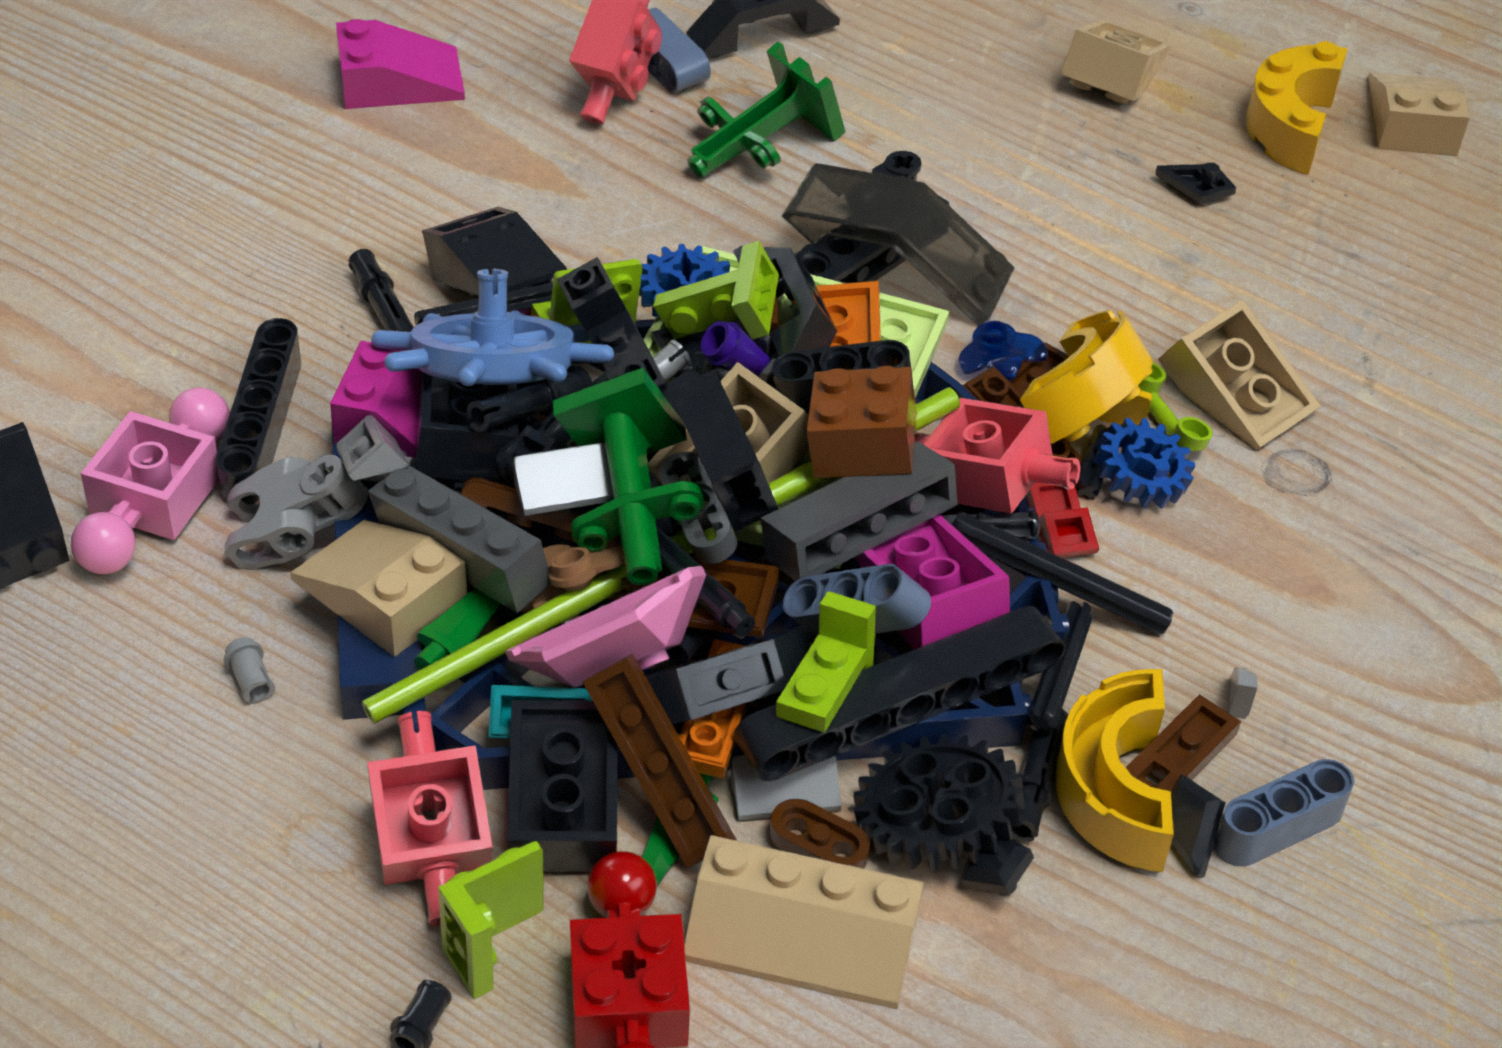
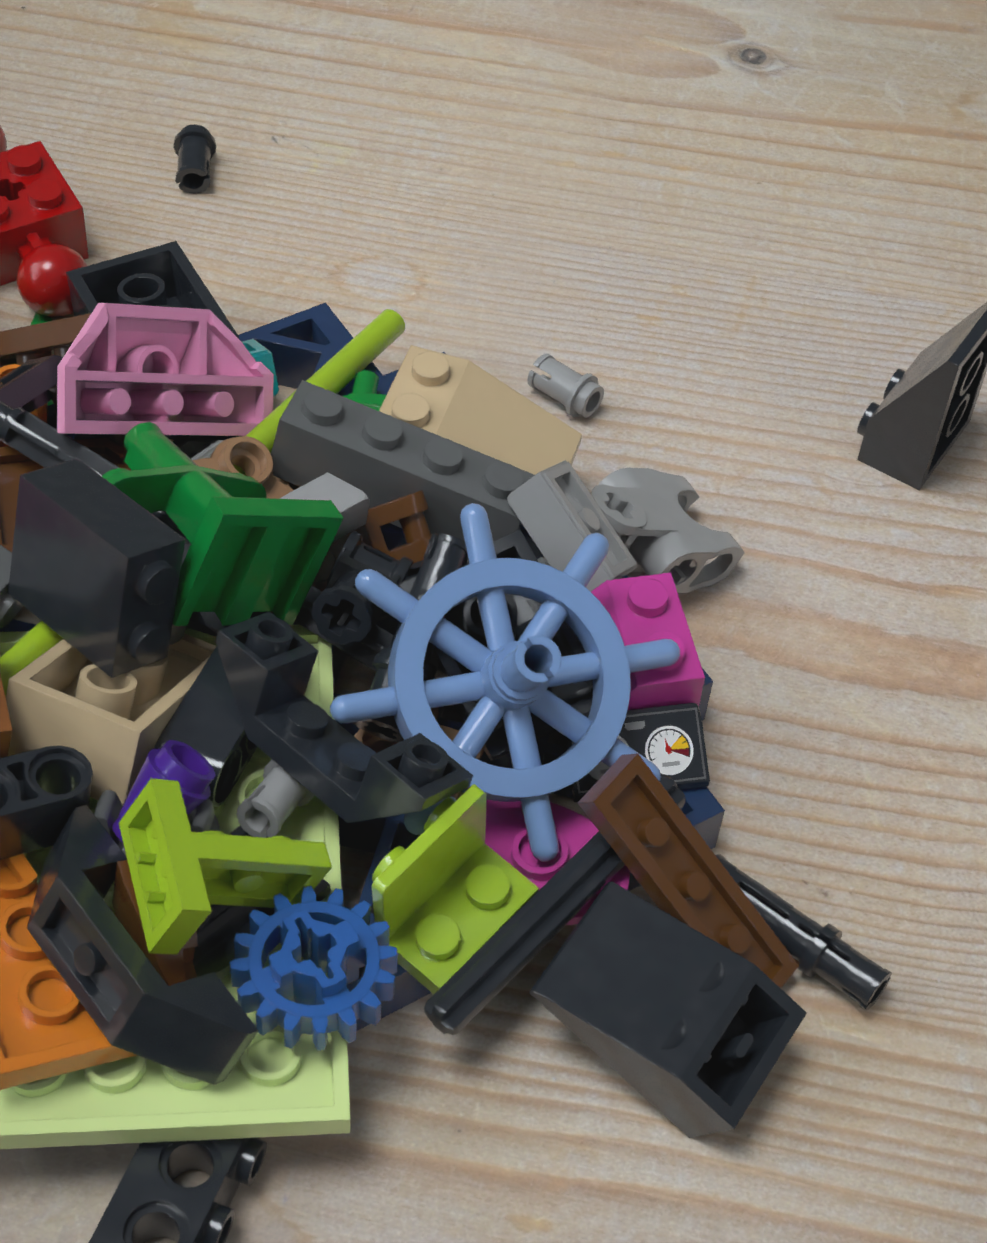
camera: 155 degrees right, 5 degrees up
(149, 479) = (841, 532): bright pink brick -> none
(259, 405) = (807, 683): black beam -> none
(435, 782) = (276, 265): coral brick -> none
(440, 289) = (679, 866): none -> reddish brown plate
(484, 904) = (174, 194): lime bracket -> none

